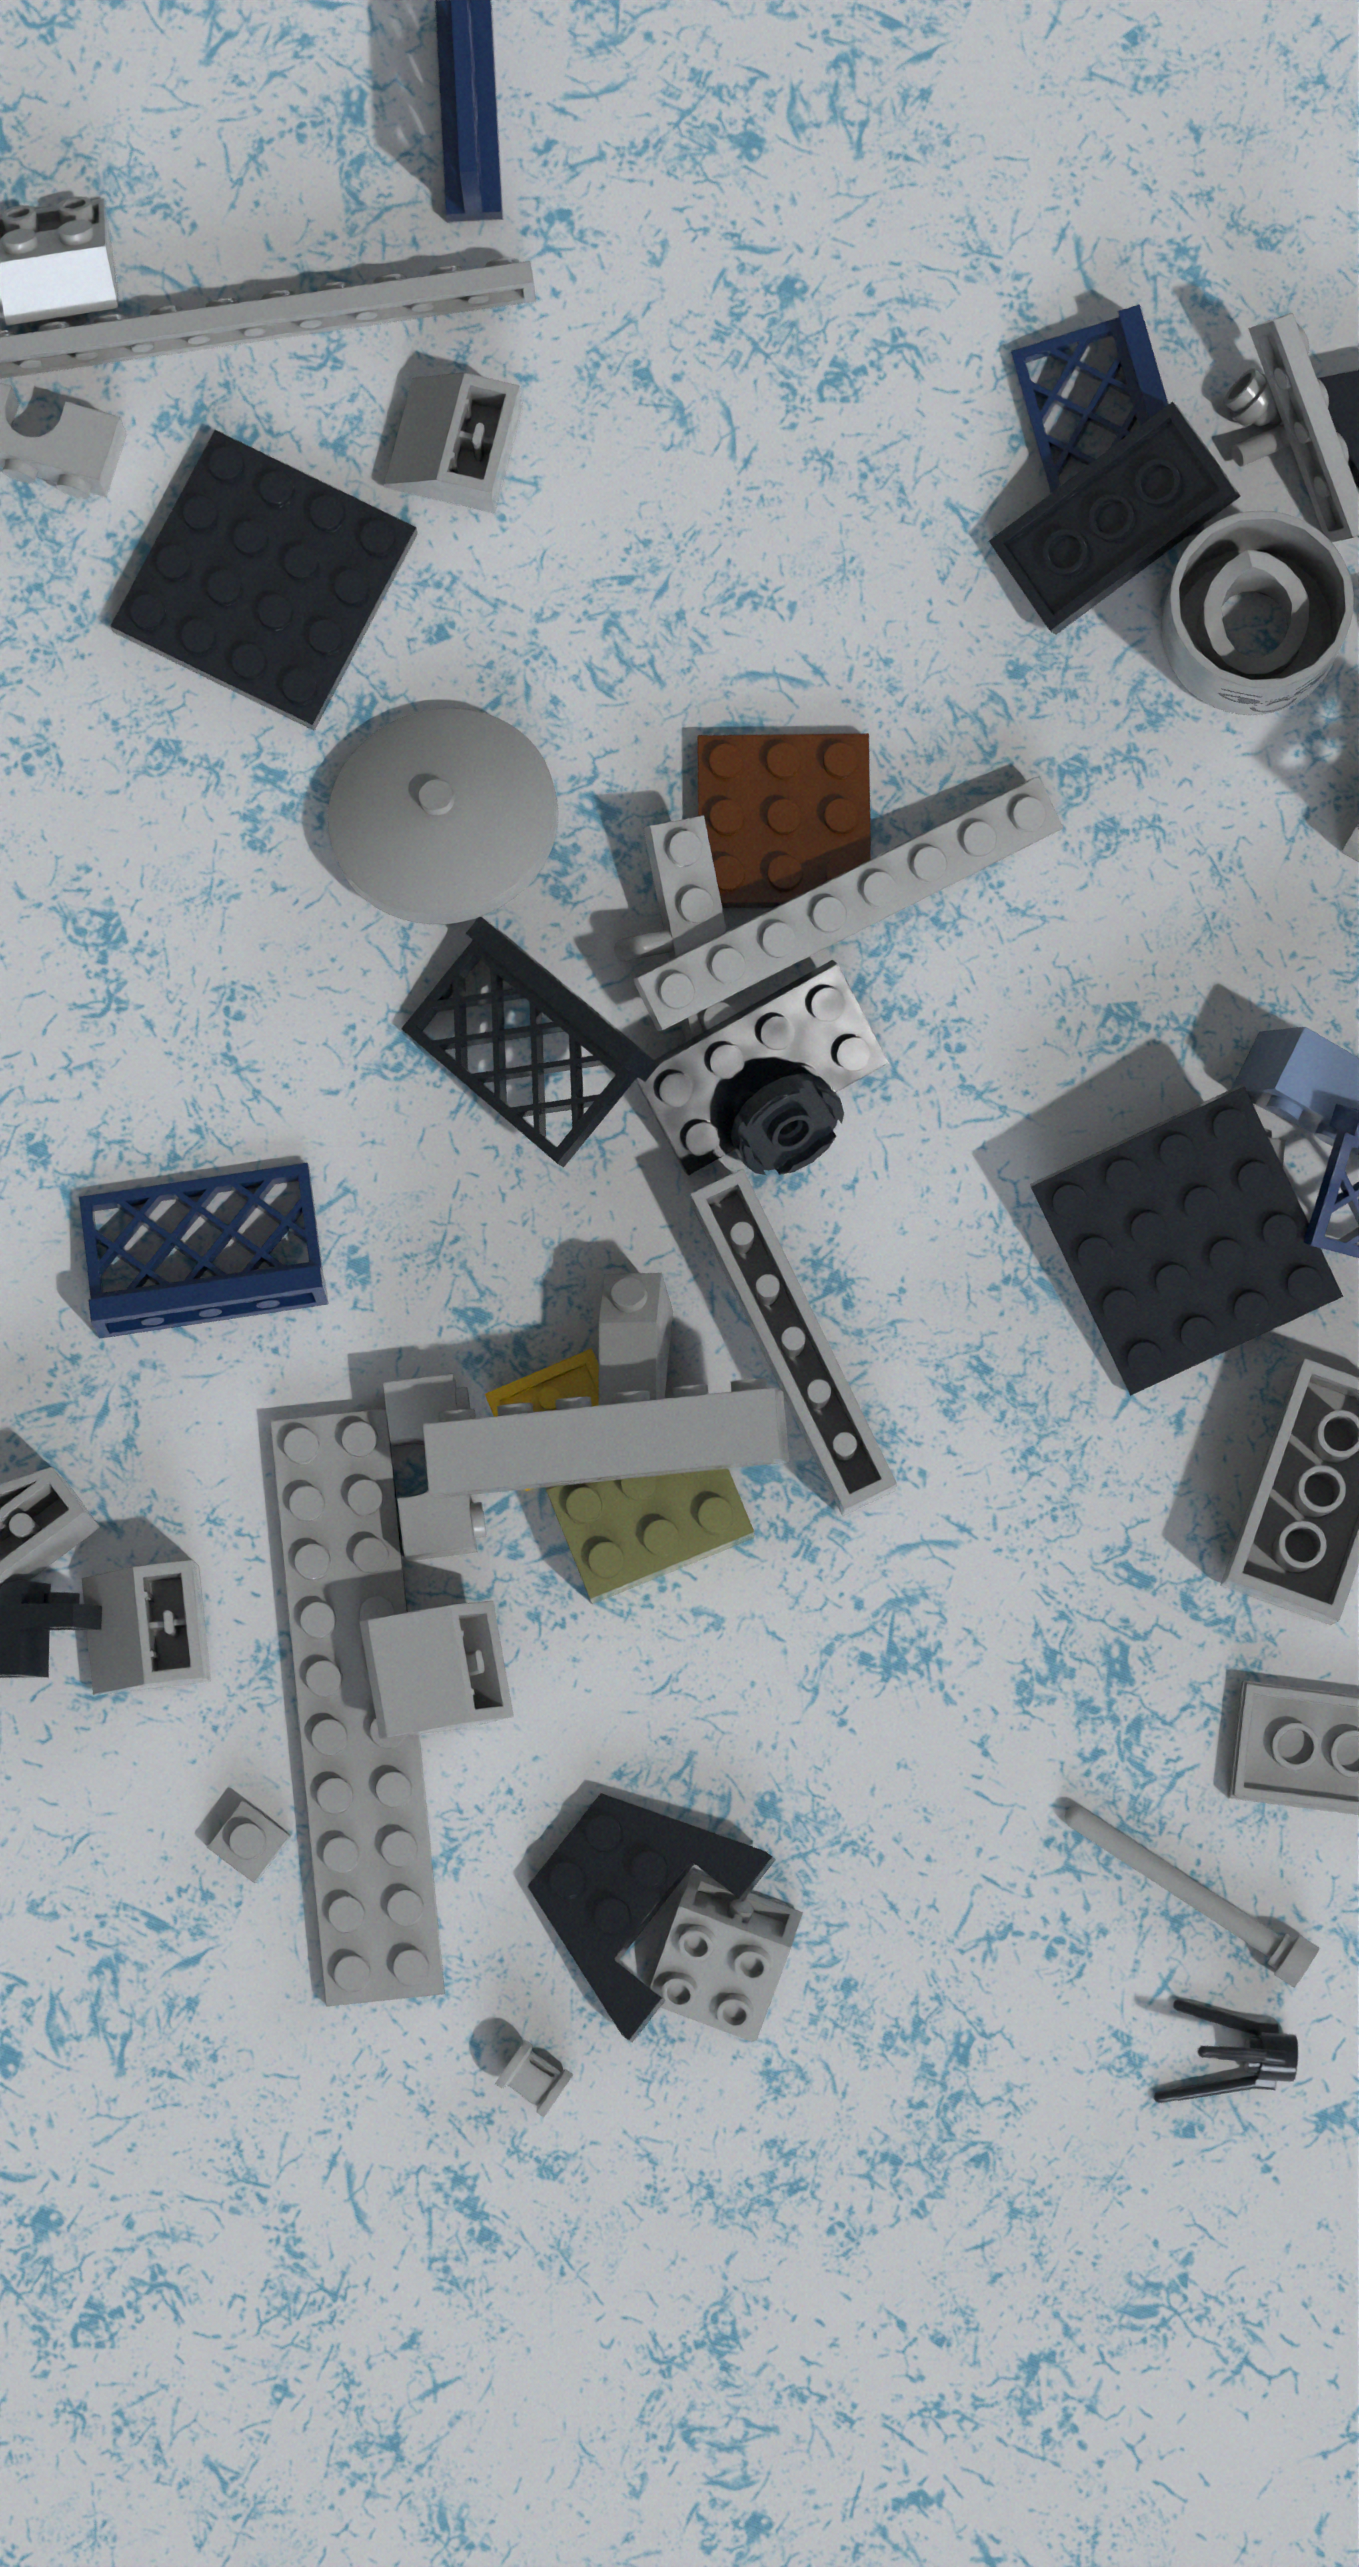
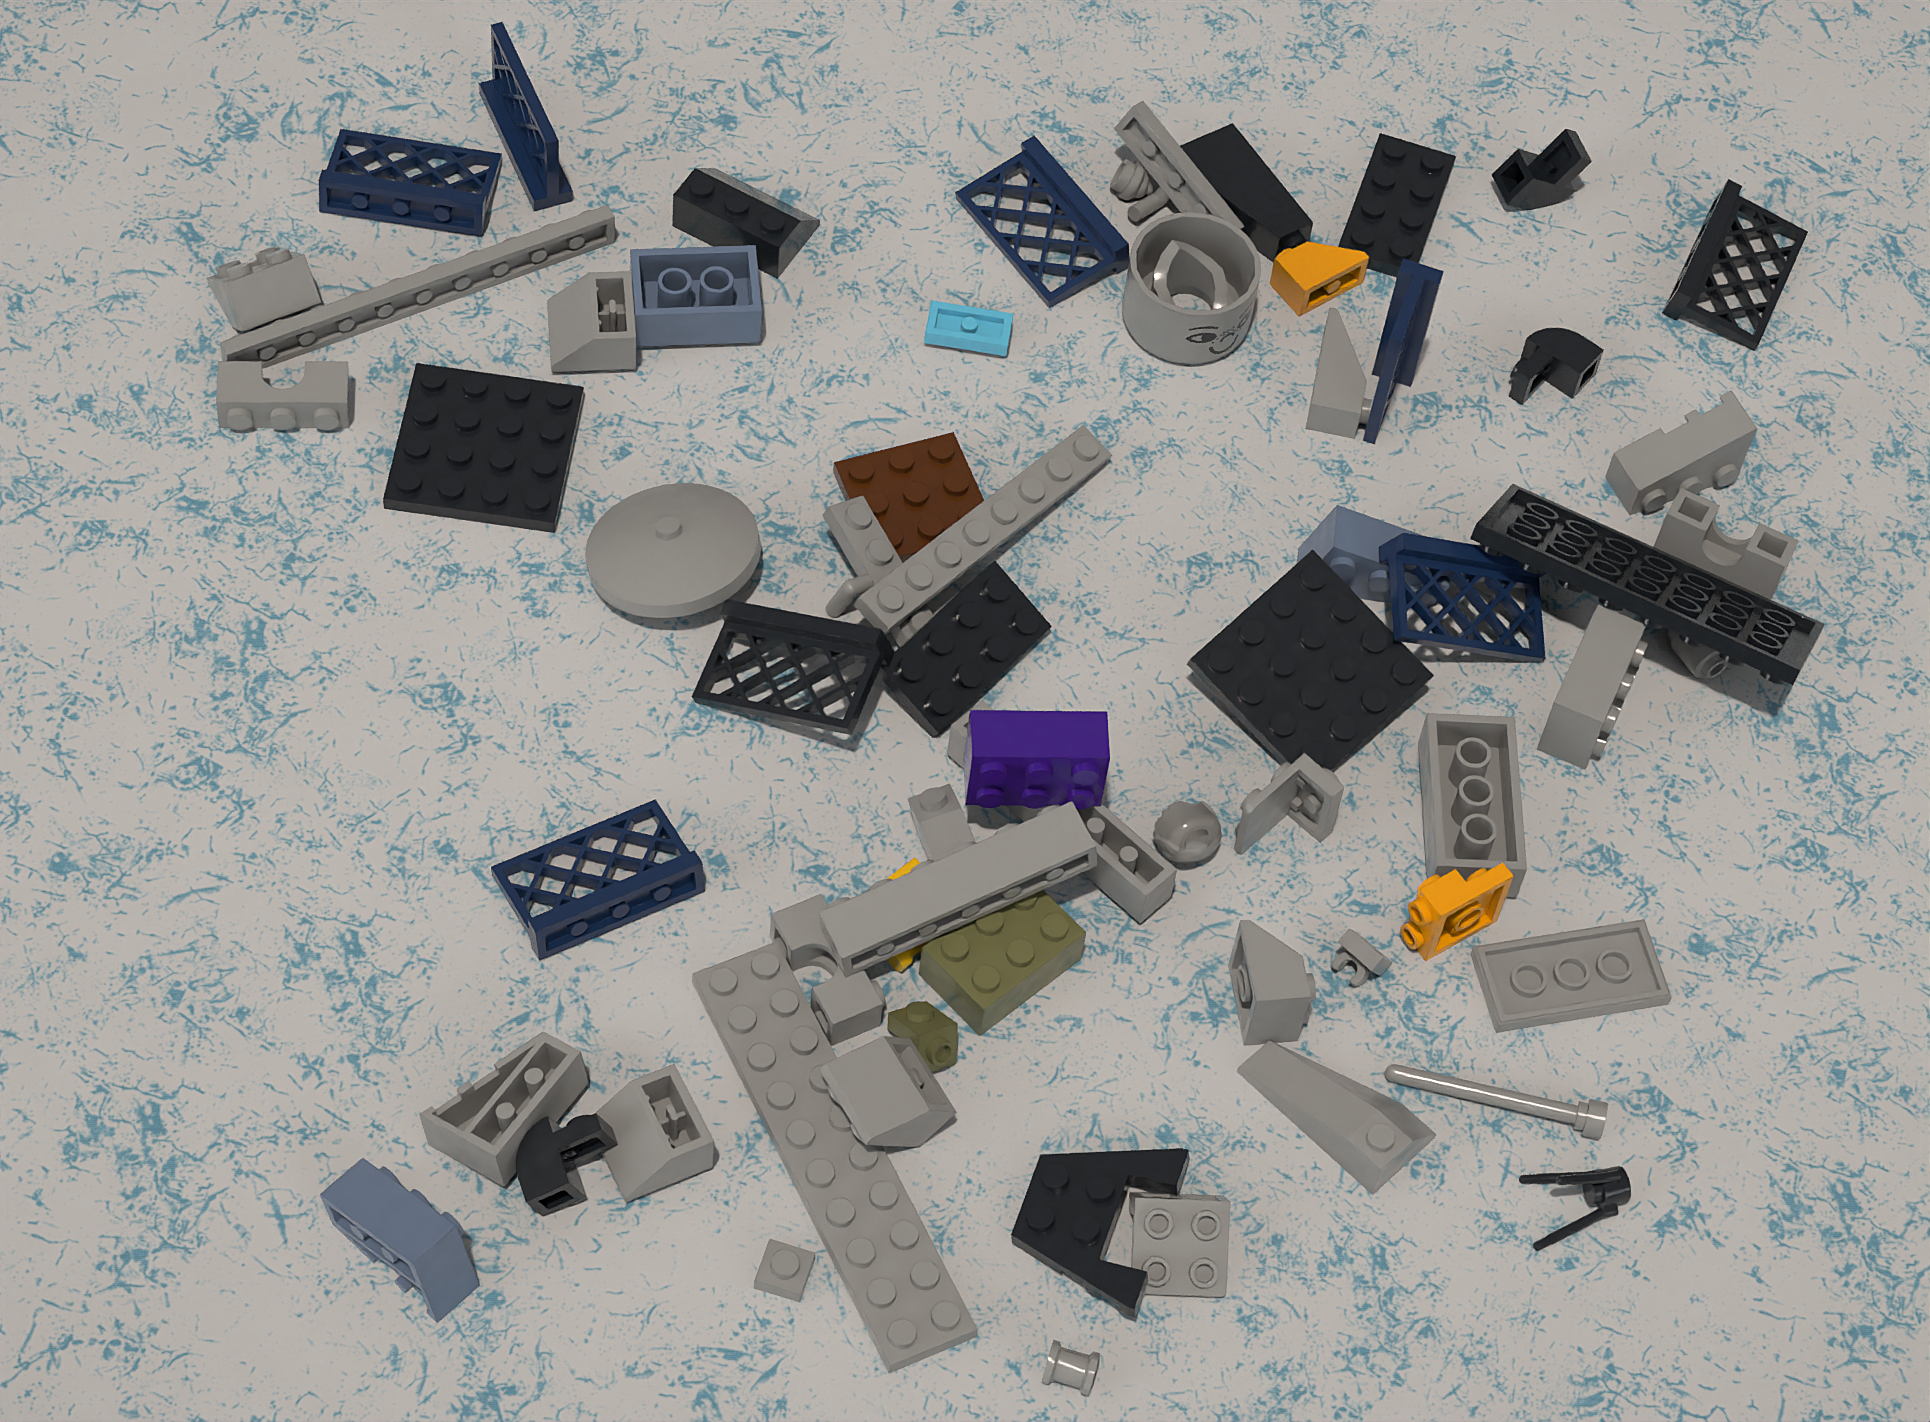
camera: 30 degrees left, 25 degrees down
(266, 165) = (408, 199): none -> dark blue fence
(520, 1591) = (930, 1032): none -> olive bracket
(599, 433) = (696, 295): none -> sand blue brick
(713, 316) = (736, 214): none -> black slope
(760, 1300) = (1036, 758): none -> dark purple brick
(787, 1124) = (999, 670): black plate -> none
(943, 1416) = (1187, 832): none -> light grey hair
(947, 577) = (968, 328): none -> medium azure plate
(954, 1673) = (1268, 986): none -> light grey slope
(995, 1858) = (1348, 1121): none -> light grey wedge
(1098, 1650) = (1364, 956): none -> light grey tile
(1114, 518) = (1070, 258): black plate -> none
(1117, 1425) = (1298, 790): none -> light grey bracket
(1217, 1635) = (1454, 909): none -> light orange plate

